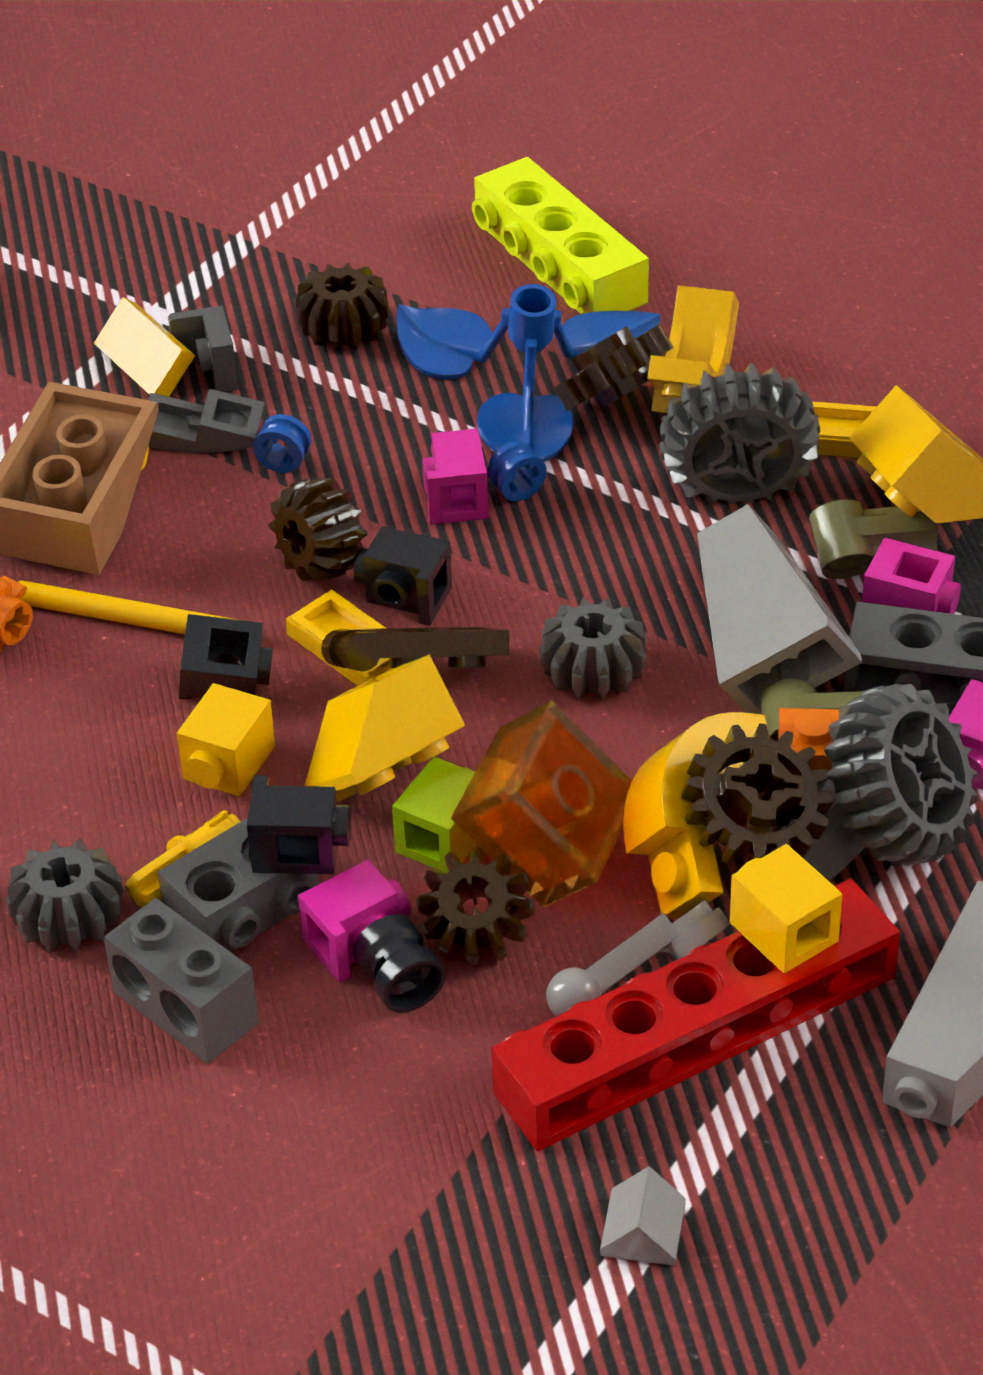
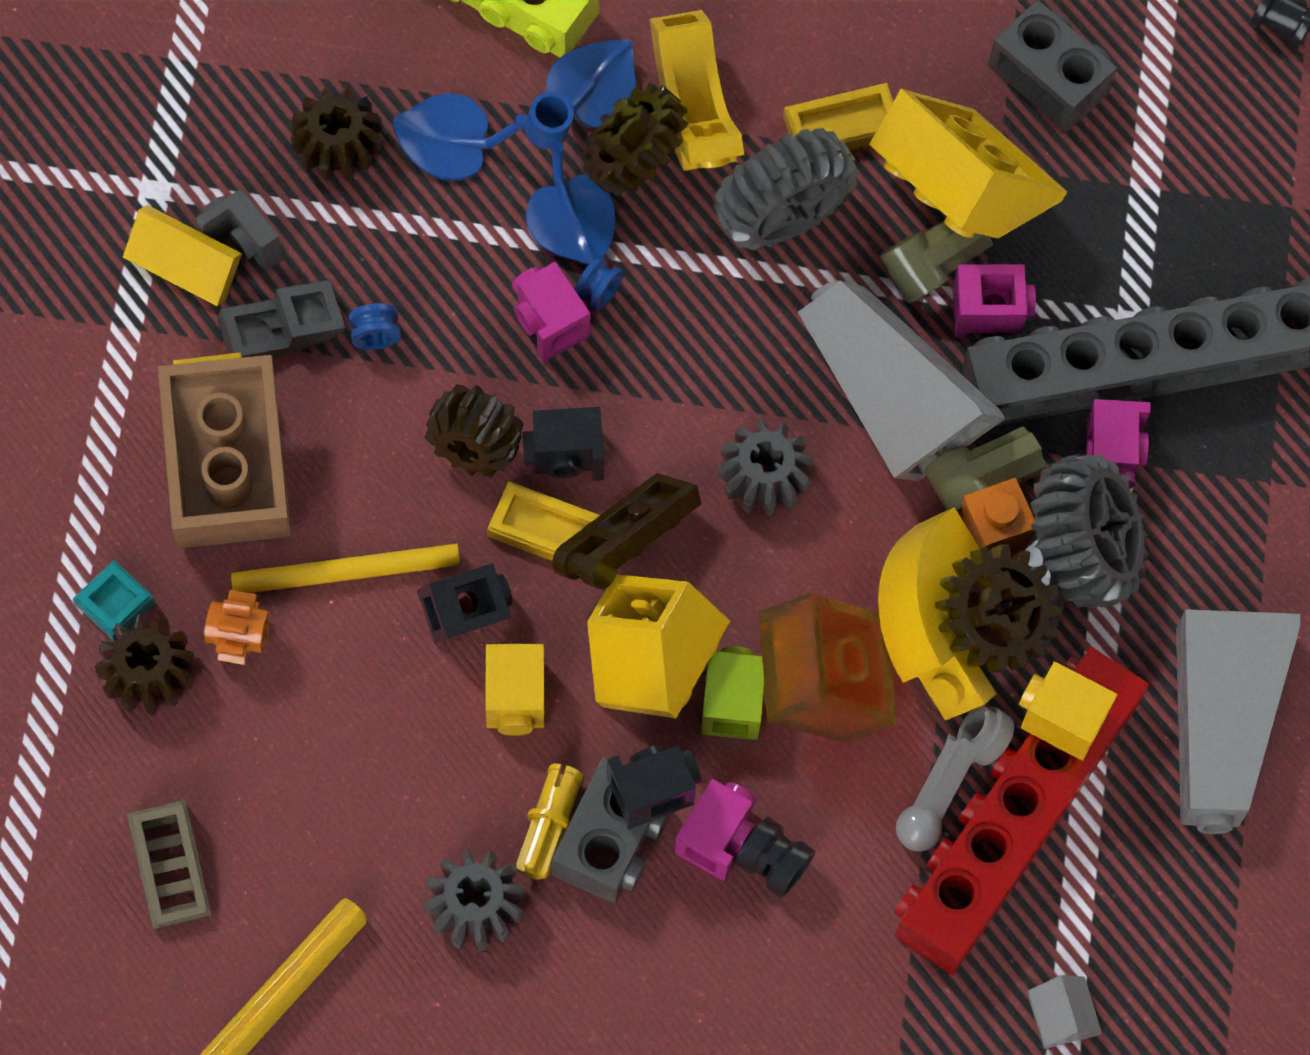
camera: 30 degrees left, 25 degrees up
(182, 980) = (618, 946): dark grey brick -> none
(470, 881) = (828, 797): dark brown gear -> none

